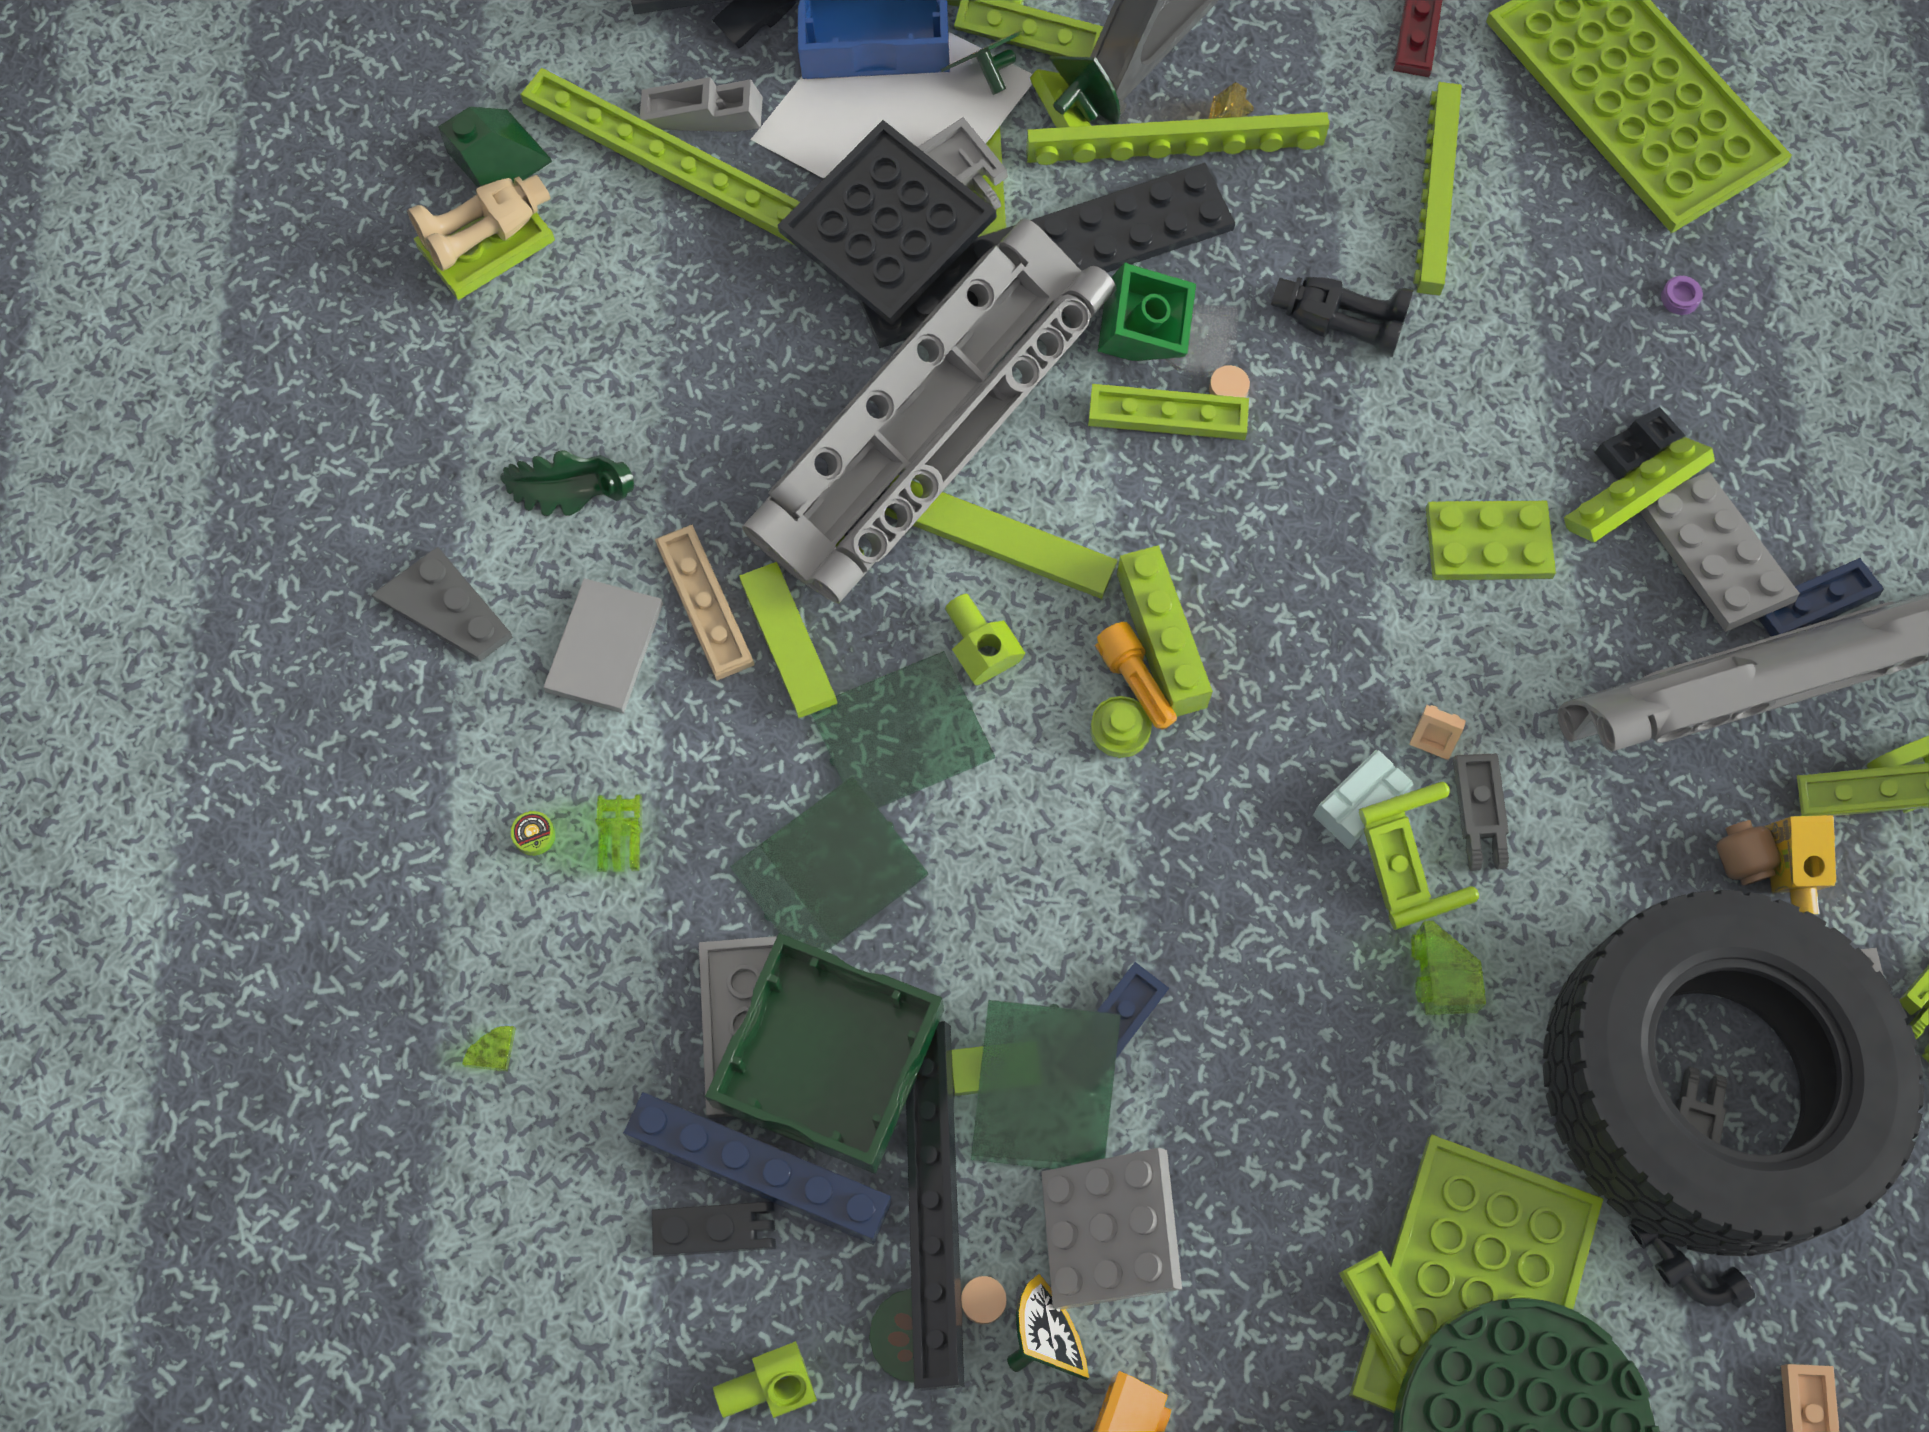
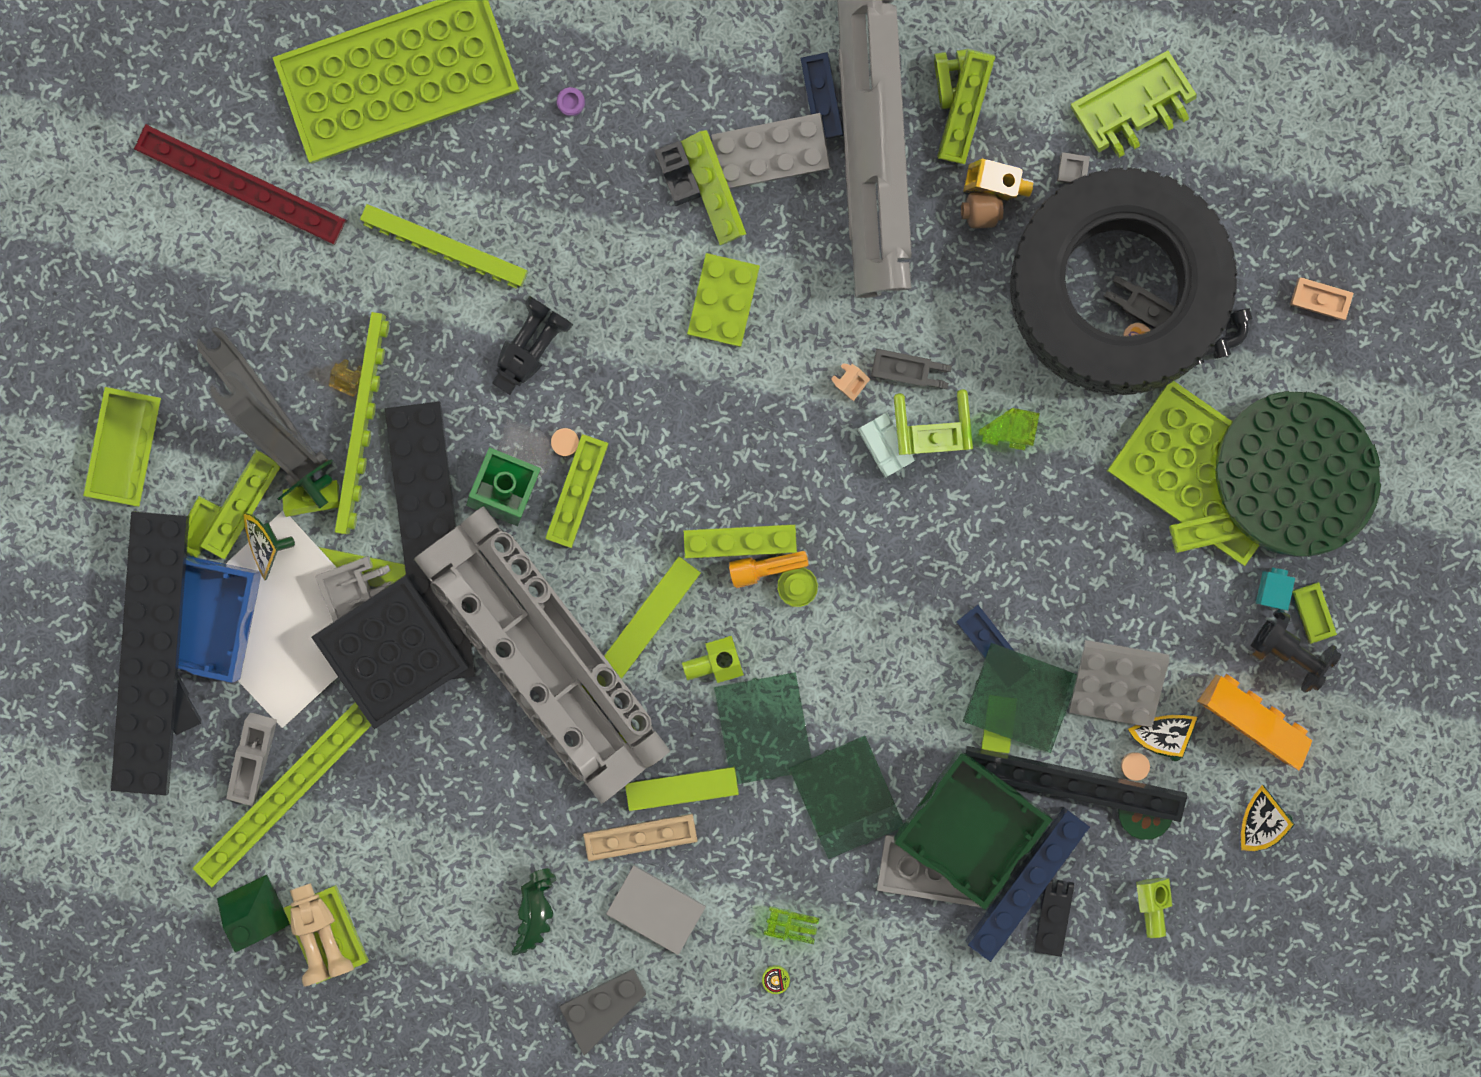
camera: 75 degrees left, 20 degrees up
(491, 1050) = (911, 1030): clear neon green tile -> none

